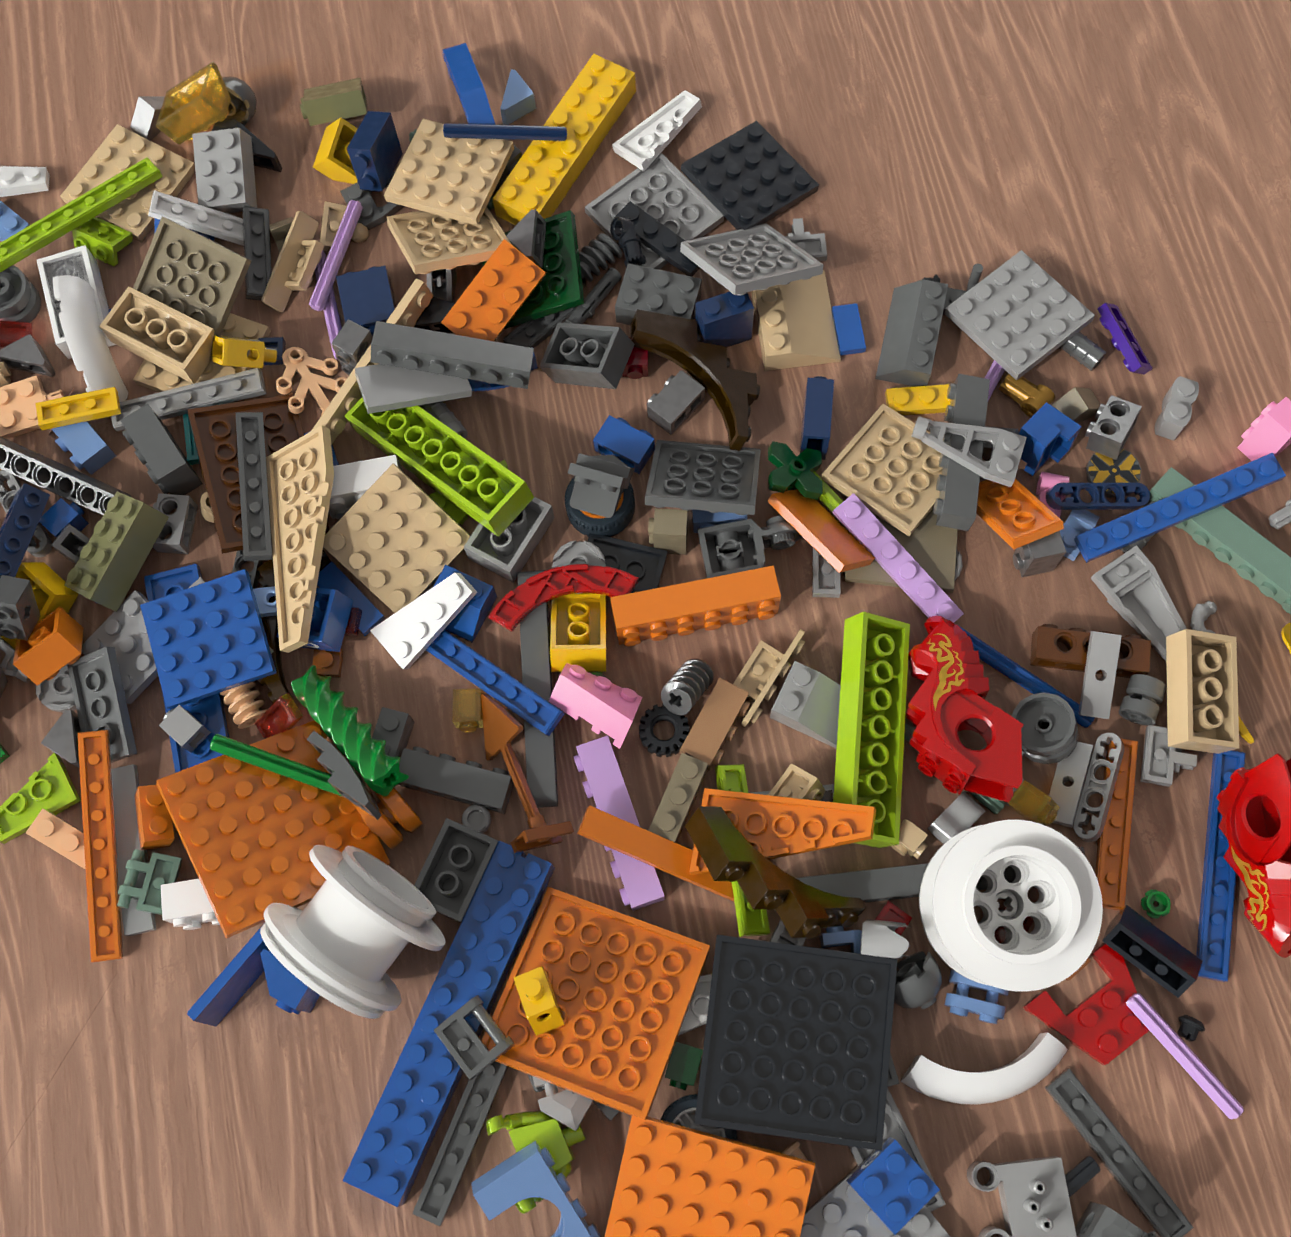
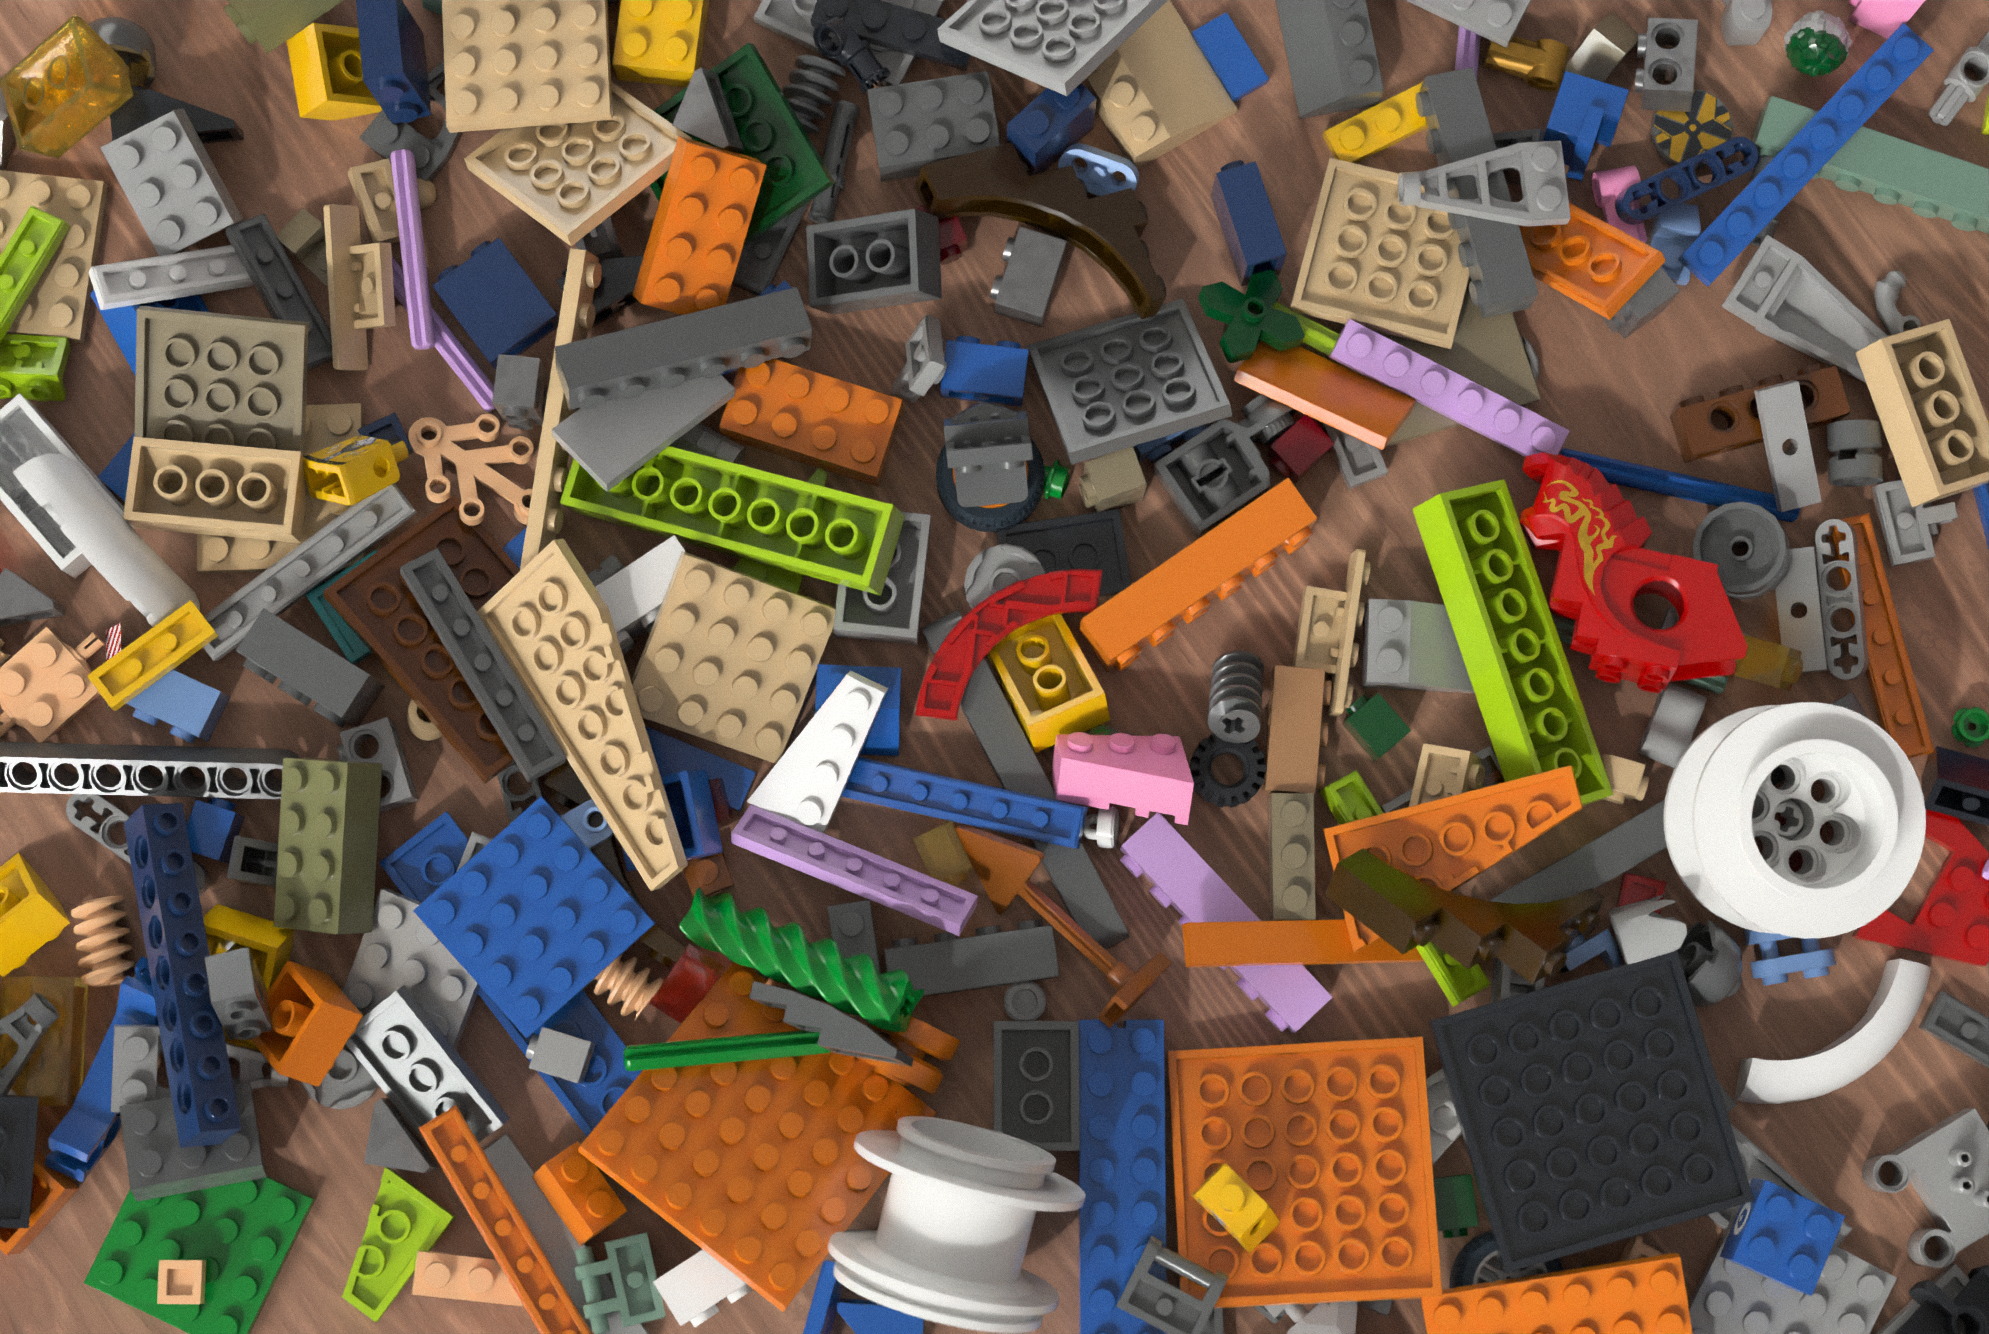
camera: 30 degrees left, 10 degrees up
(410, 694) = (854, 869): none -> lavender plate
(513, 430) = (813, 419): none -> orange brick
(574, 733) = (1107, 827): none -> white tile
(589, 423) = (924, 361): none -> light grey hinge
(638, 521) = (1056, 480): none -> green plate
(744, 358) = (1100, 168): none -> light blue plate
(766, 741) = (1375, 725): none -> dark green brick
(792, 560) = (1299, 449): none -> dark red brick
(1212, 449) = (1817, 43): none -> dark green piece

